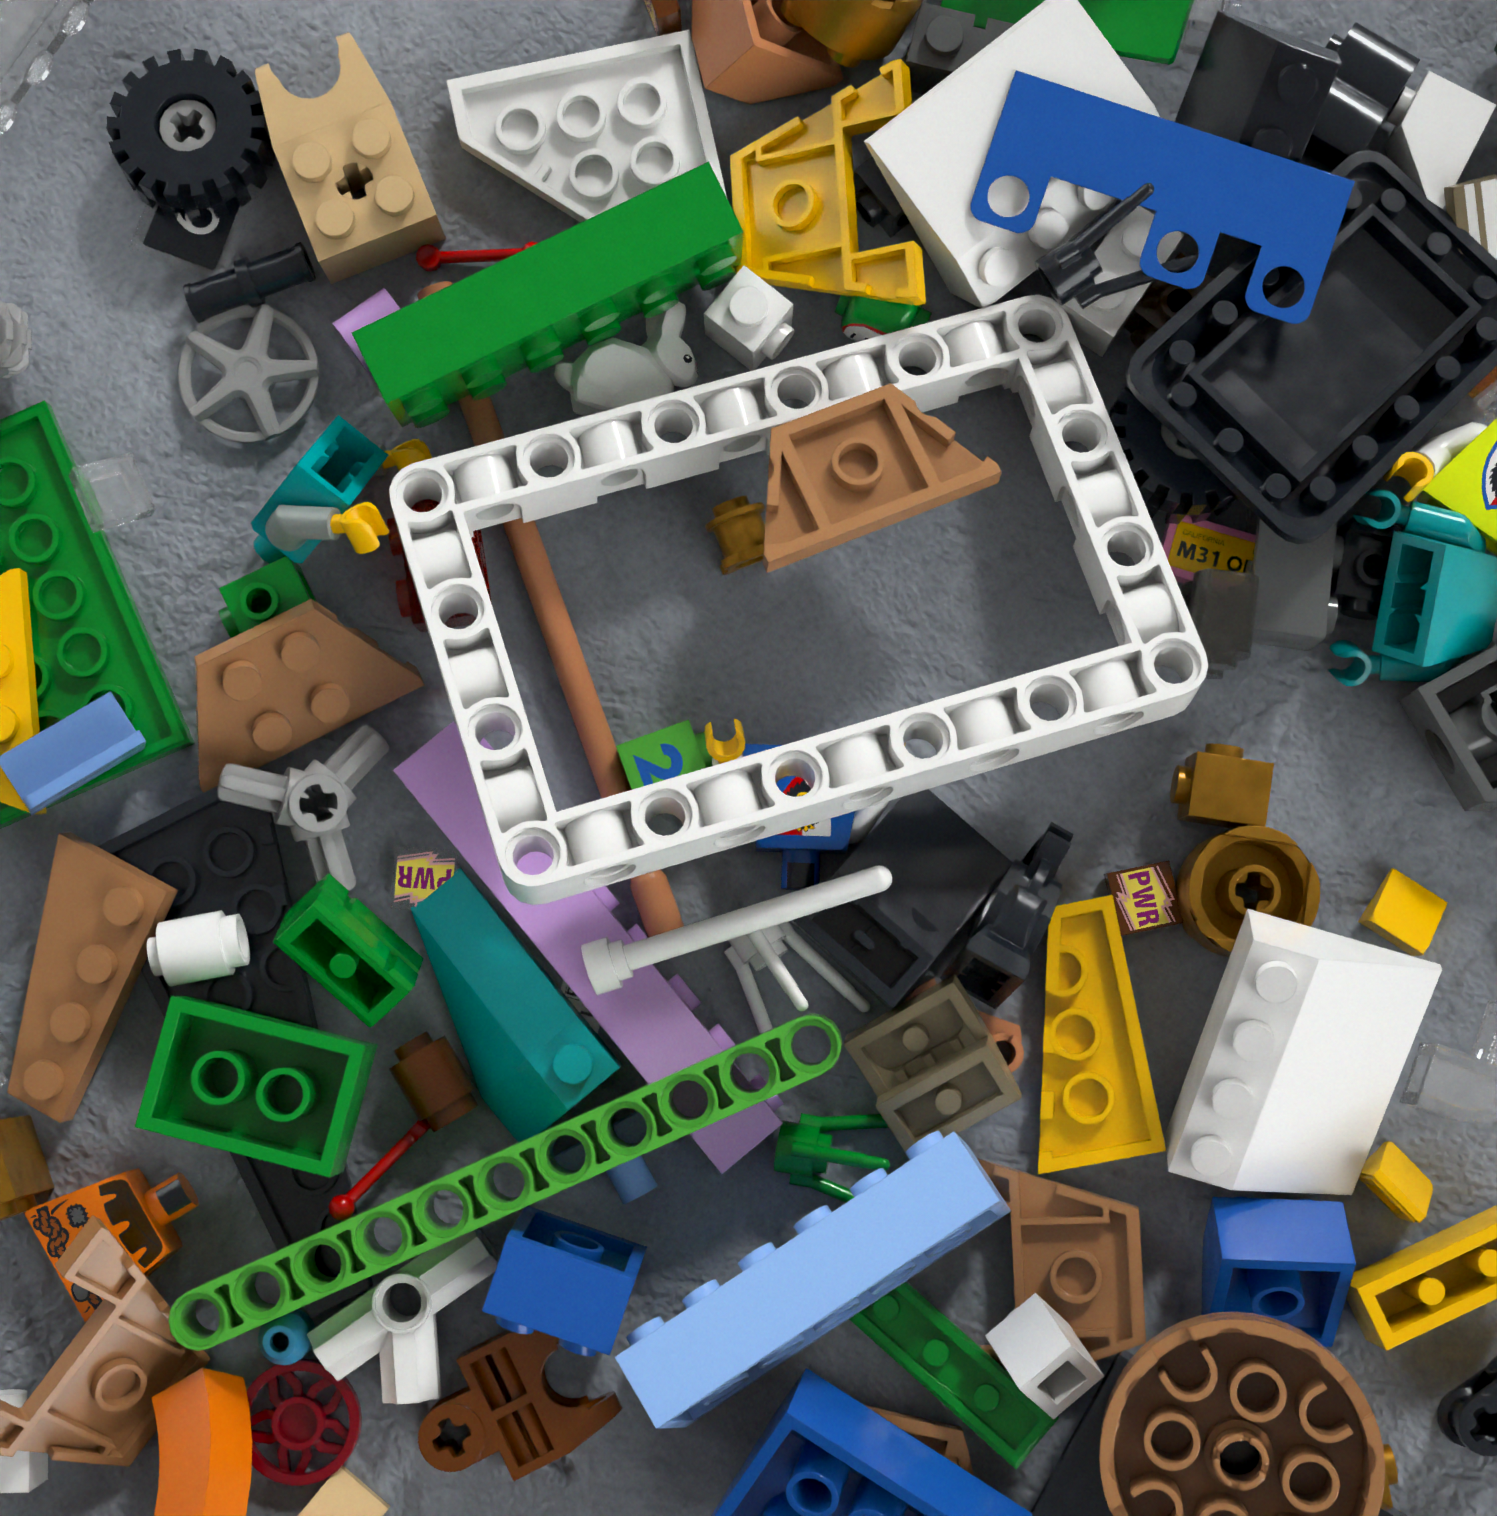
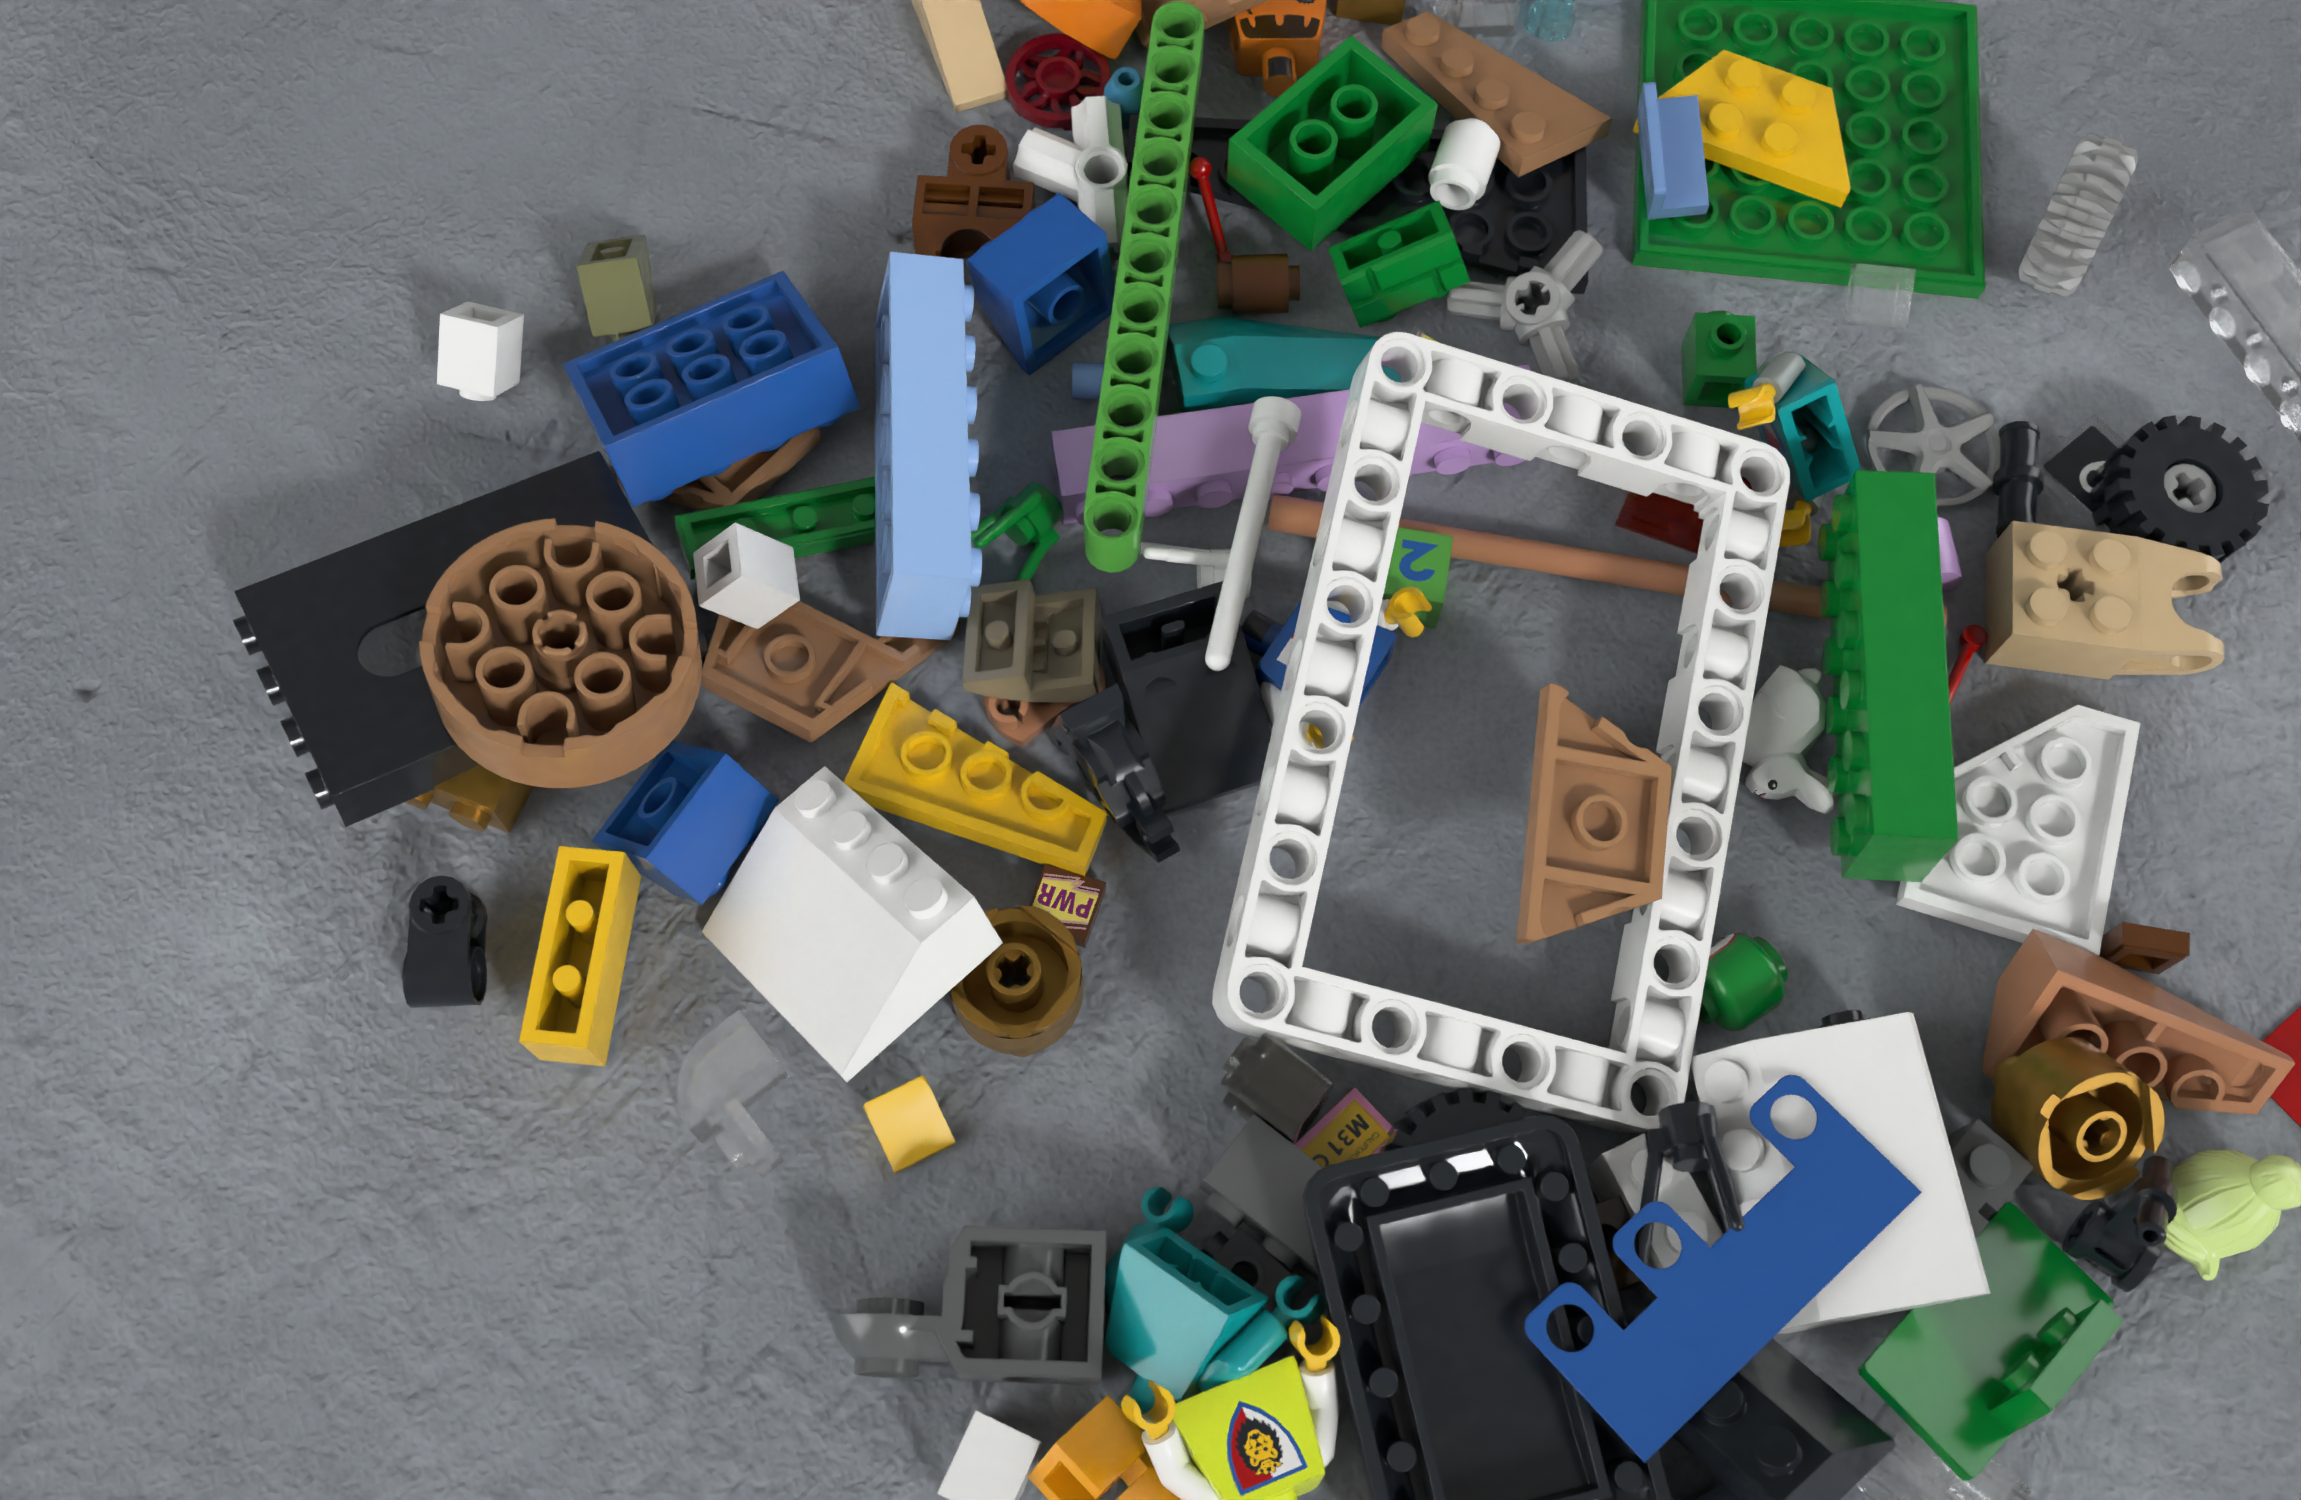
camera: 120 degrees right, 15 degrees down
(288, 687) = (1646, 324): medium nougat wing -> none
(750, 319) = (1784, 855): white brick -> none
(800, 202) = (1879, 958): yellow wing -> none
(1222, 788) = (1119, 1022): pearl gold brick -> none
(1397, 1183) = (684, 971): yellow slope -> none

